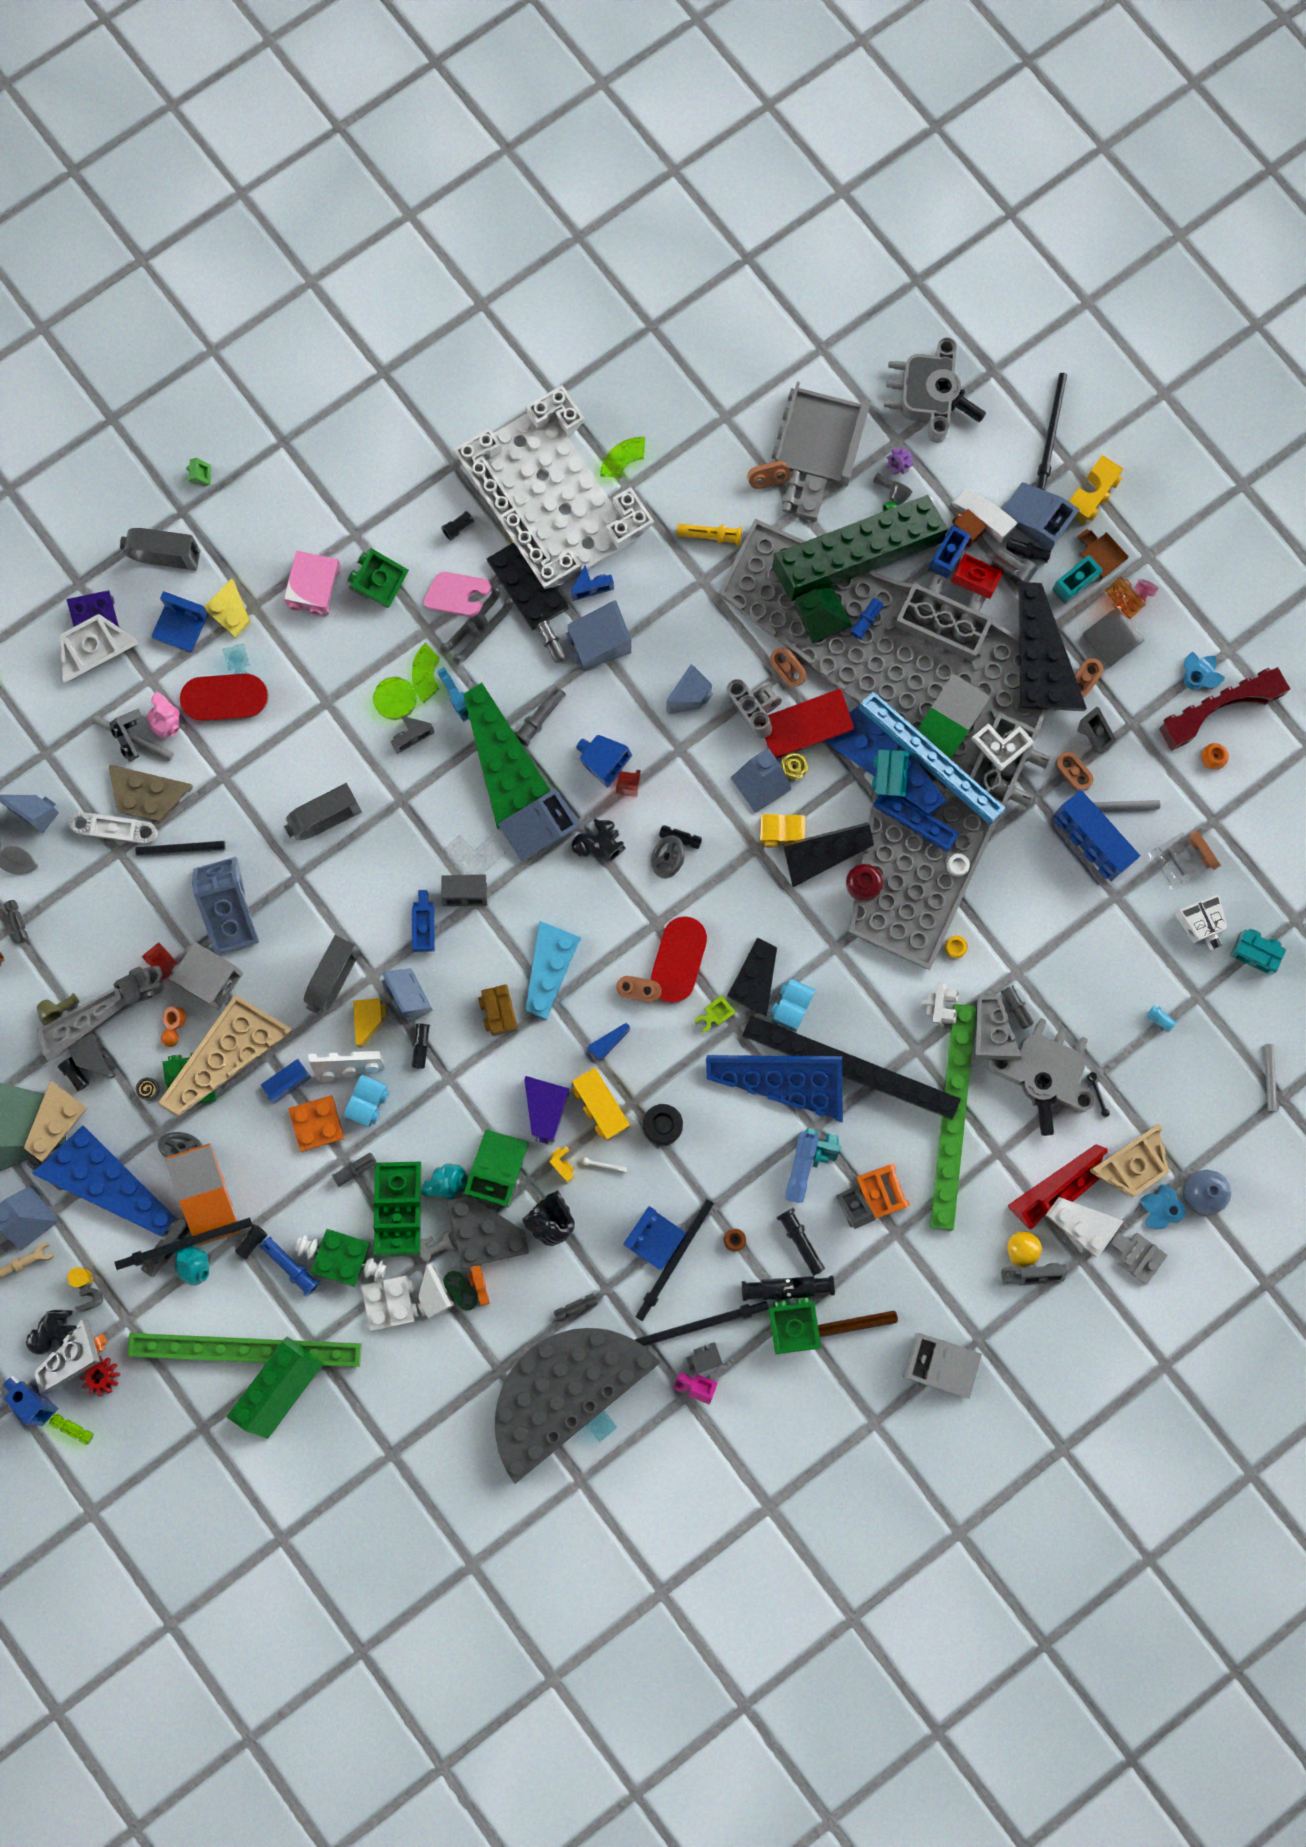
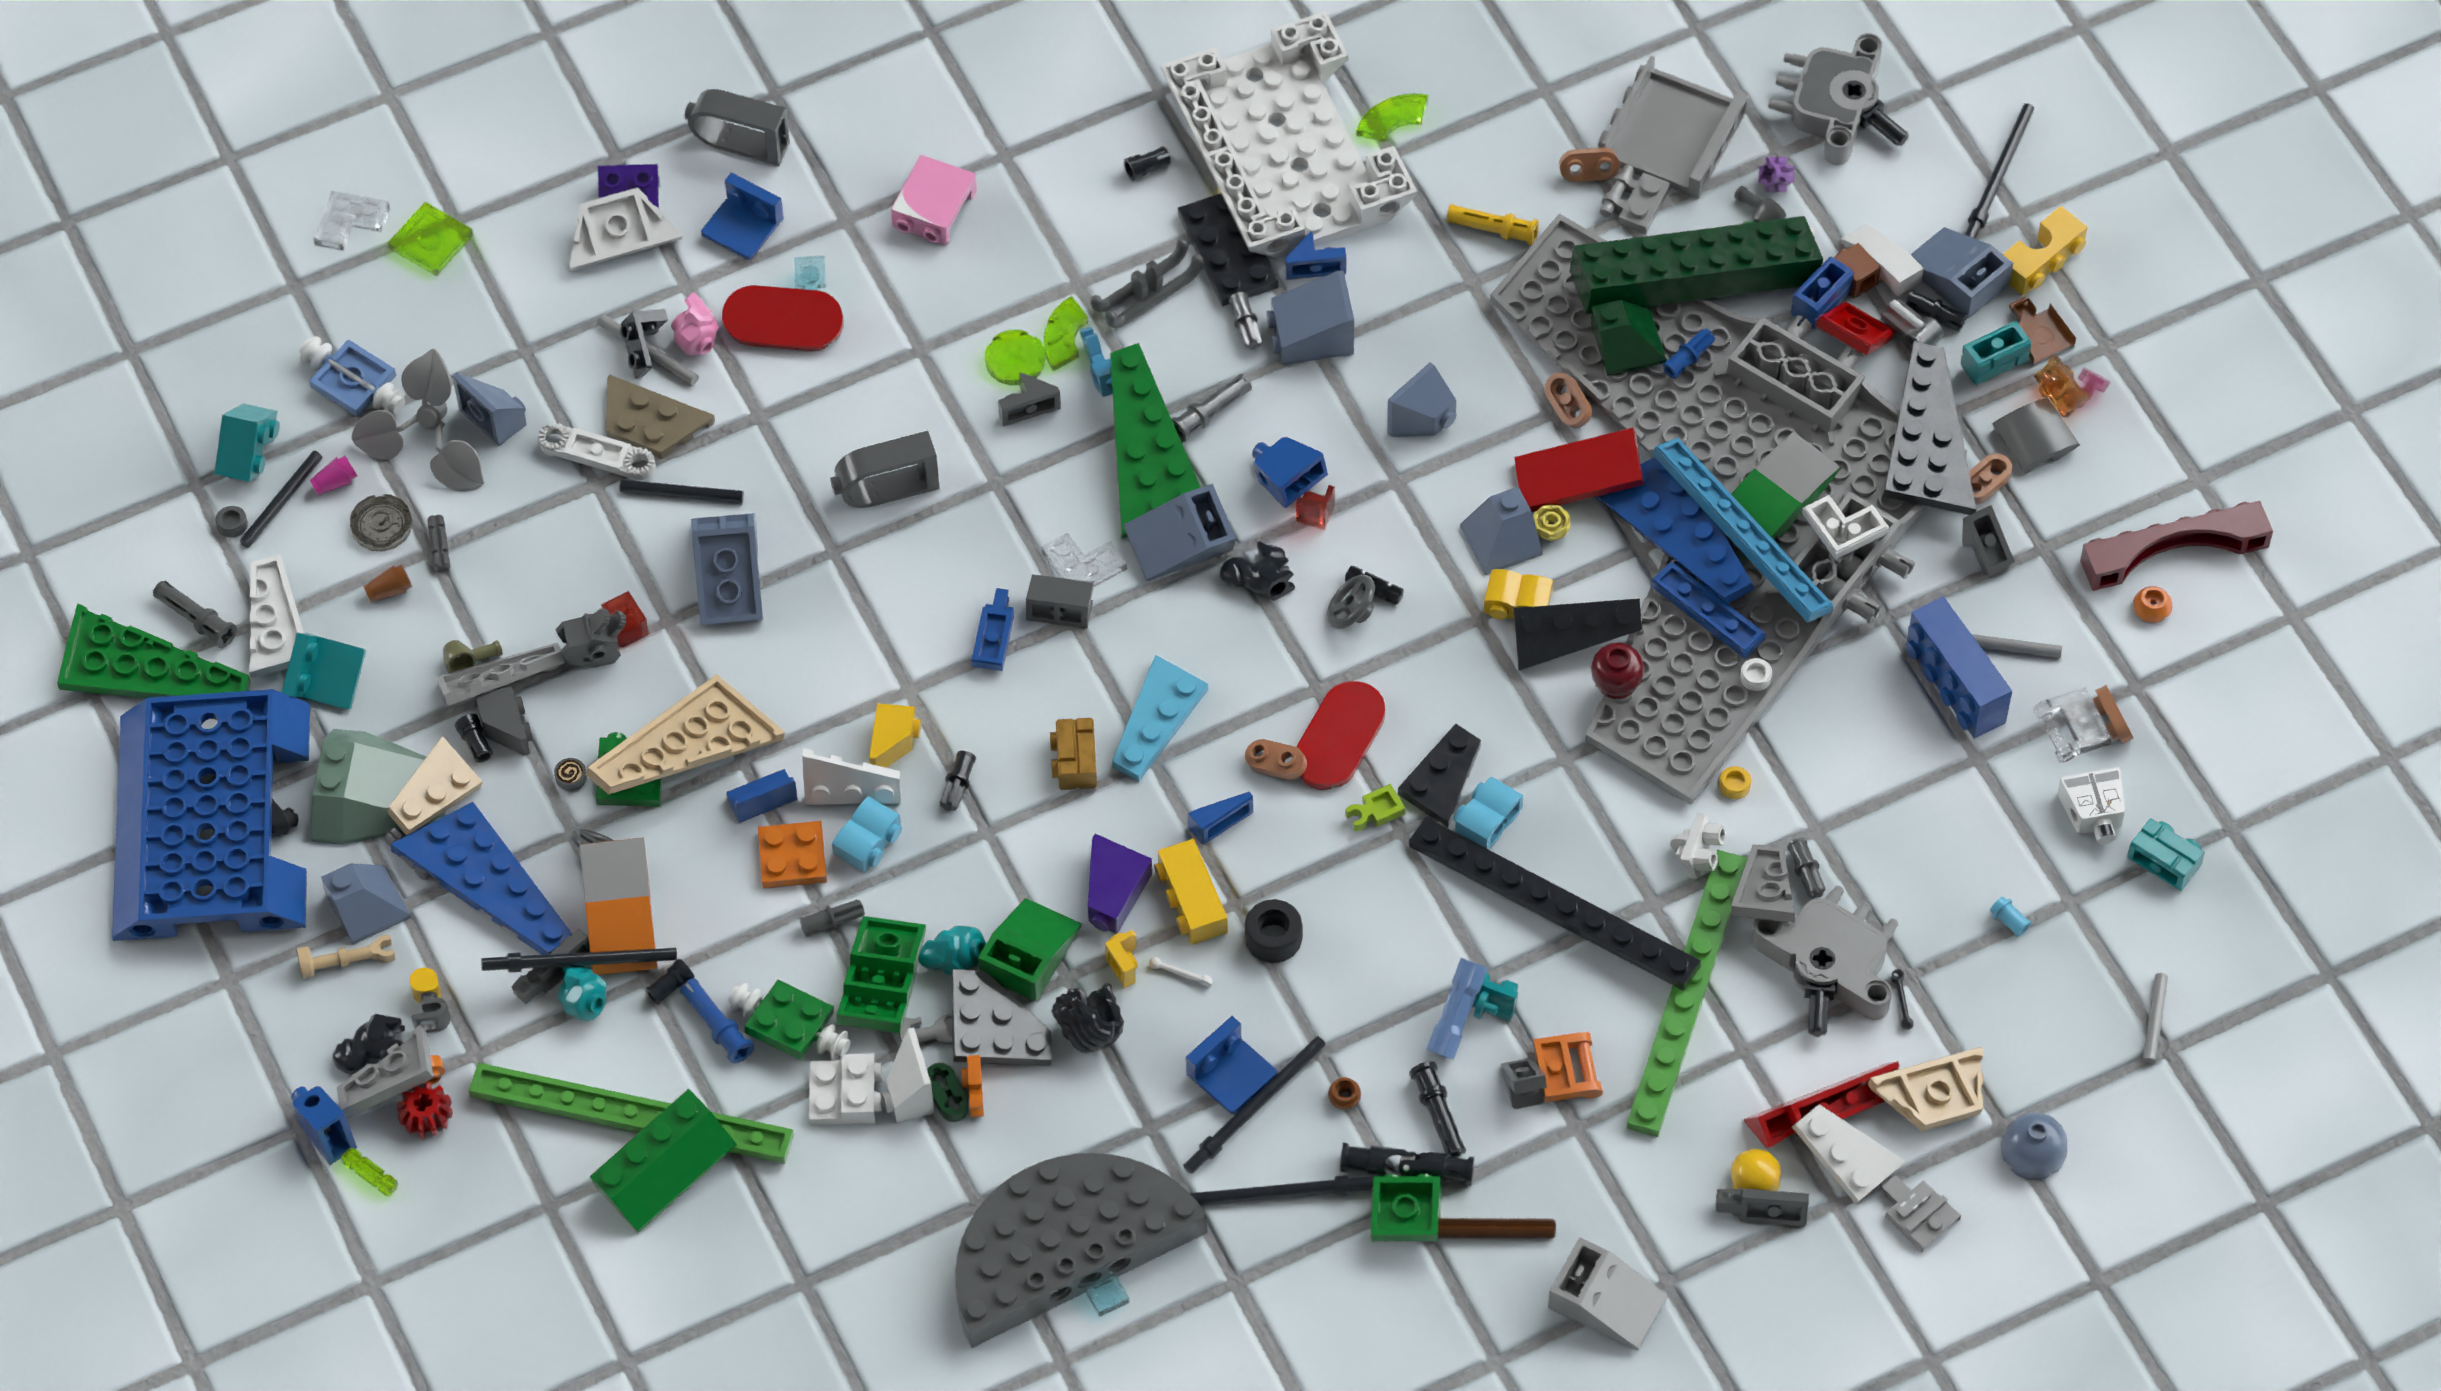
camera: 15 degrees right, 20 degrees down
(174, 1019) = (626, 693): orange plate -> none
(199, 472) = (809, 47): bright green tile -> none
(206, 975) = (684, 645): light grey slope -> none
(229, 609) = (812, 217): light yellow wing -> none
(330, 974) = (855, 665): dark grey window -> none
(377, 577) = (1023, 206): green plate -> none
(407, 994) = (951, 706): sand blue slope -> none
(451, 592) = (1122, 240): bright pink piece -> none
(575, 1307) = (1103, 1140): dark grey axle -> none
(699, 1387) = (1254, 1266): dark pink plate -> none
(704, 1358) = (1270, 1232): dark grey brick -> none
(757, 699) = (1510, 436): light grey piece -> none
(790, 1080) = (1474, 905): blue wing -> none
(891, 773) = (1681, 537): teal brick -> none
(1075, 771) = (1950, 588): nougat plate -> none
(1159, 1207) = (1962, 1155): dark azure plate -> none
(1203, 671) = (2156, 496): dark azure plate -> none

